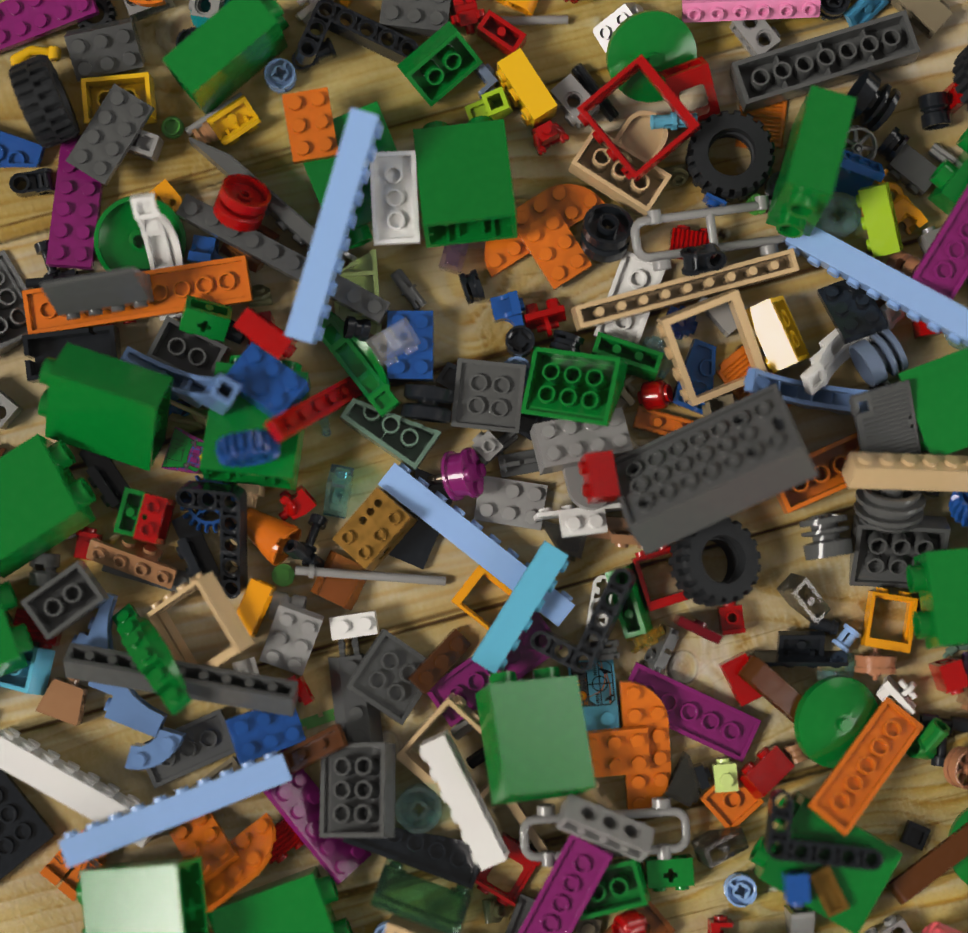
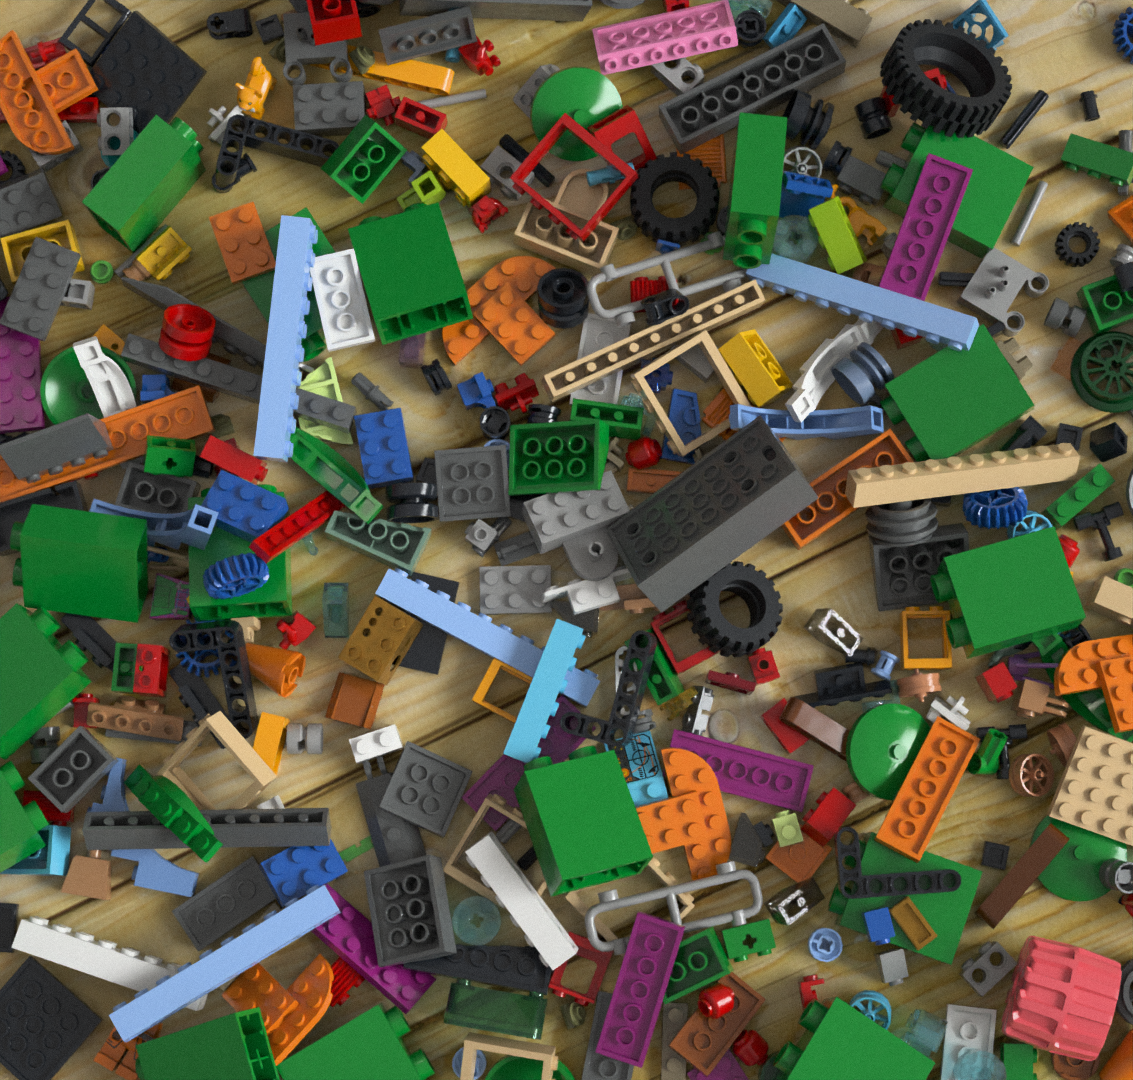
camera: 15 degrees left, 5 degrees down
(155, 752) = (193, 910): medium blue brick -> none
(280, 75) = (203, 200): light blue wheel -> none
(283, 575) = (294, 706): bright green plate -> none
(291, 638) = (314, 768): light grey plate -> none
(304, 692) = (337, 824): red bracket -> none
(306, 550) = (314, 675): black bar -> none
(312, 571) = (323, 695): light grey bar -> none
(315, 748) = (358, 876): reddish brown plate -> none
(356, 328) = (326, 440): black wheel -> none
(394, 342) = (366, 446): clear brick -> none
(439, 661) = (471, 765): reddish brown plate -> none
(461, 474) = (459, 568): magenta wheel -> none
(593, 829) = (672, 901): light grey brick -> none
(599, 477) = (599, 542): red brick -> none
(826, 537) = (844, 564): dark grey wheel -> none
(852, 311) = (827, 332): black plate -> none
(887, 421) = (881, 432): dark grey window -> none

